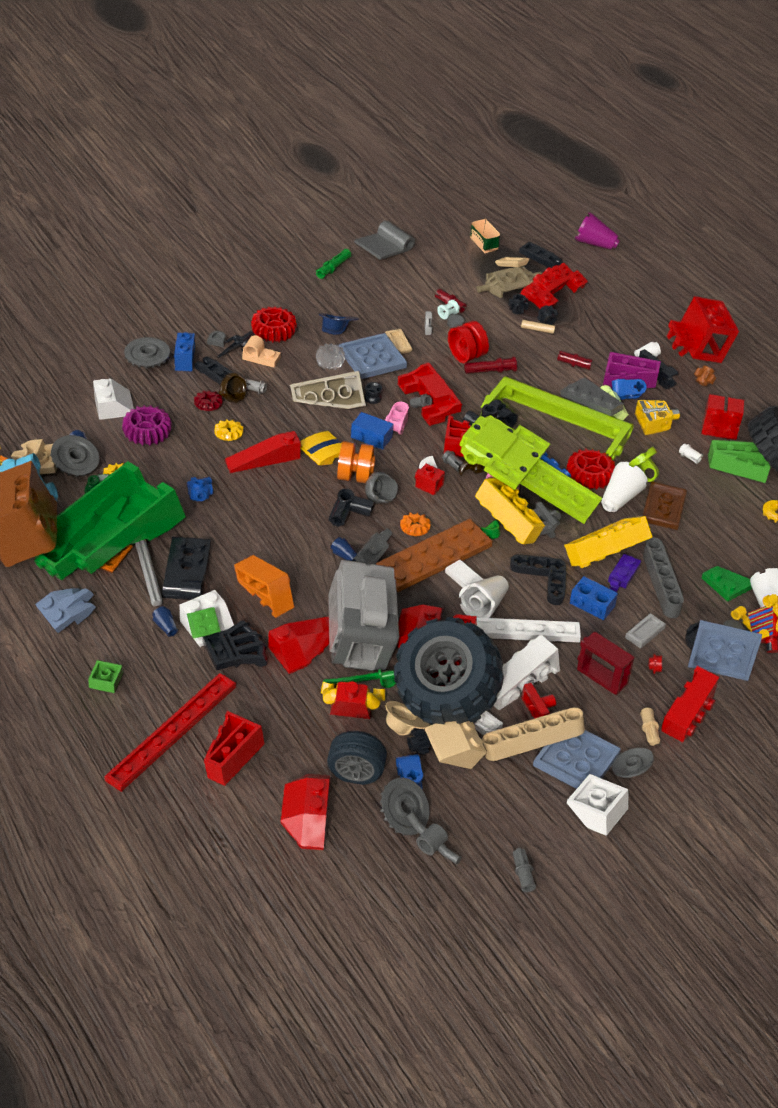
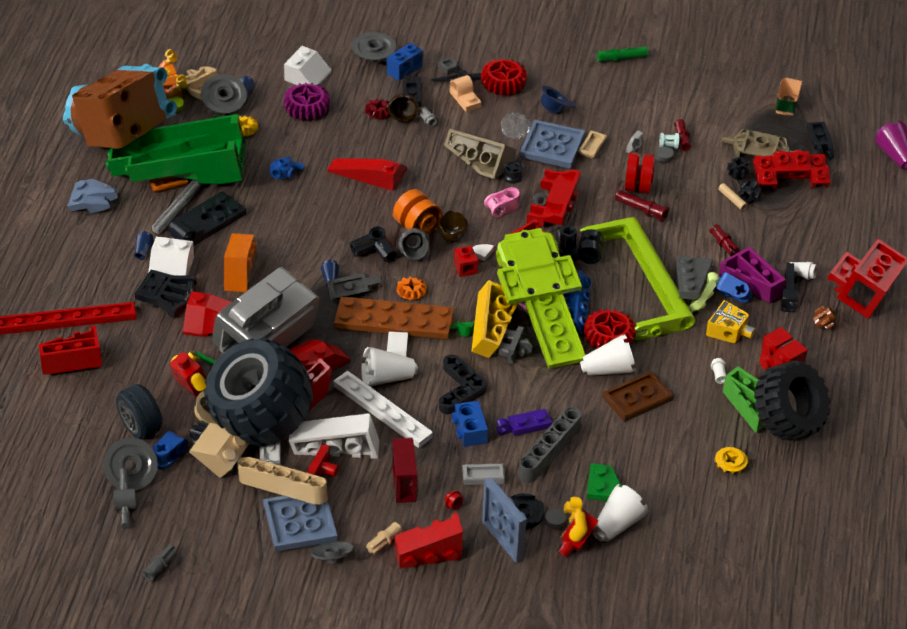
camera: 45 degrees right, 0 degrees up
(105, 676) = (58, 256): bright green piece -> none
(203, 622) = (157, 258): bright green piece -> none
(223, 433) = (366, 143): yellow gear -> none
(306, 810) = (74, 424): red wedge -> none
(321, 447) = (425, 185): yellow slope -> none
(372, 430) = (470, 199): blue brick -> none
(387, 241) = (692, 60): dark grey door -> none
(389, 457) = (452, 226): none -> dark brown hair
(512, 262) = (781, 130): tan tile -> none
(599, 803) = (265, 558): white slope -> none
(608, 541) = (534, 387): yellow wedge -> none
(644, 461) = (656, 351): lime tile -> none

